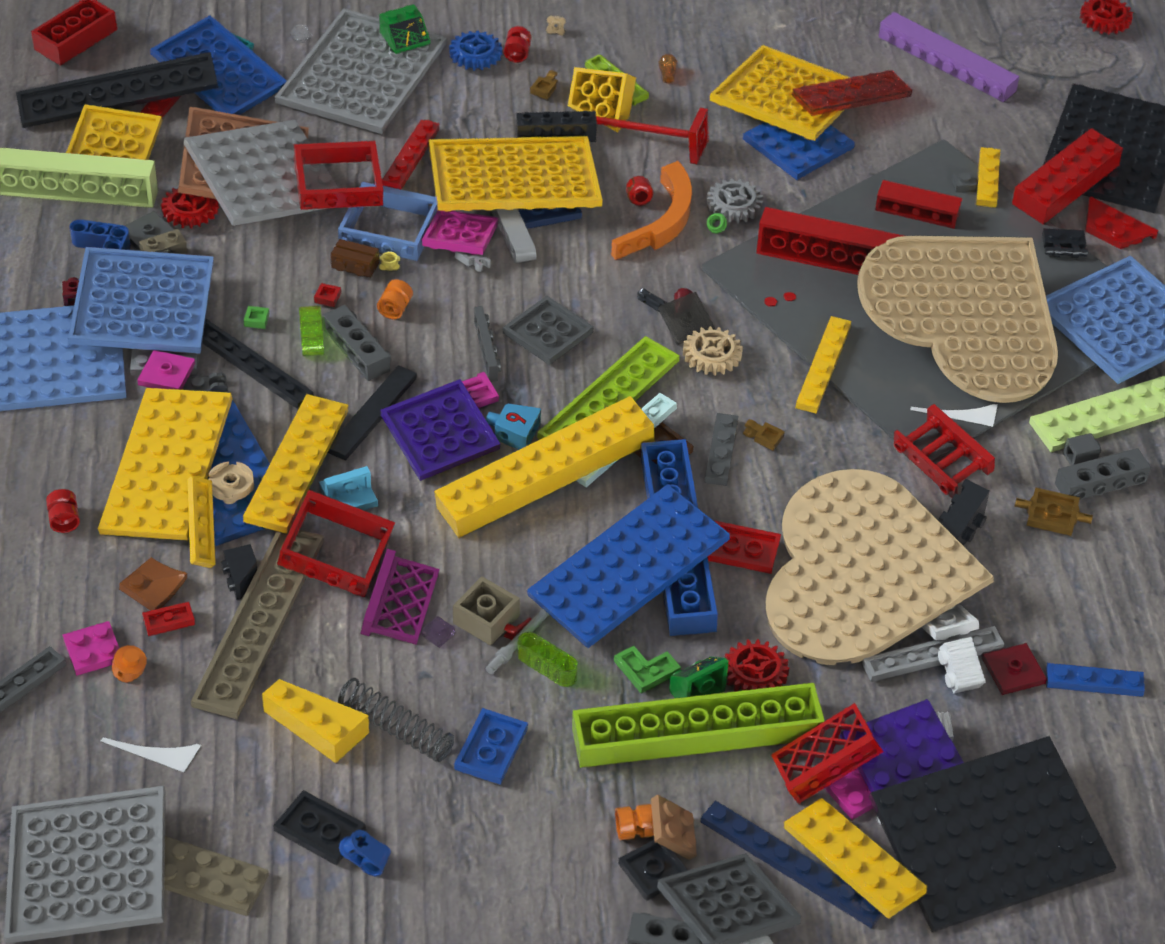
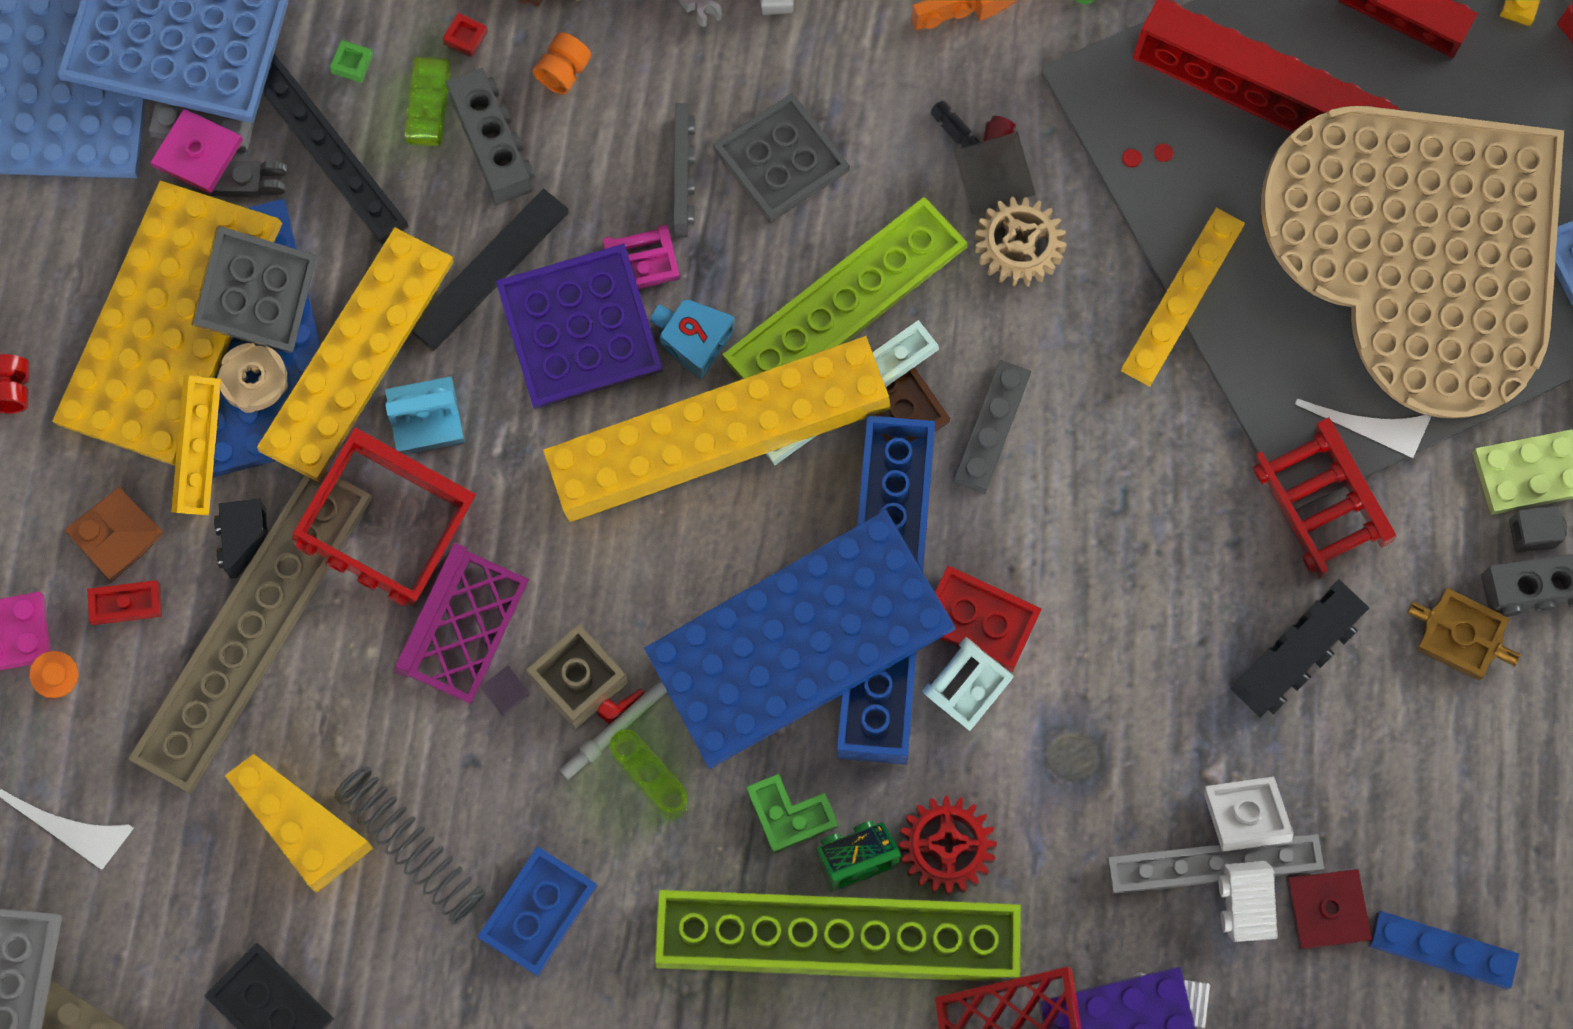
camera: 10 degrees right, 25 degrees up
(224, 429) = (254, 290): none -> dark grey plate
(751, 583) = (976, 692): none -> light aqua plate
(765, 435) = (1064, 416): pearl gold plate -> none
(863, 568) = (1153, 701): tan plate -> none

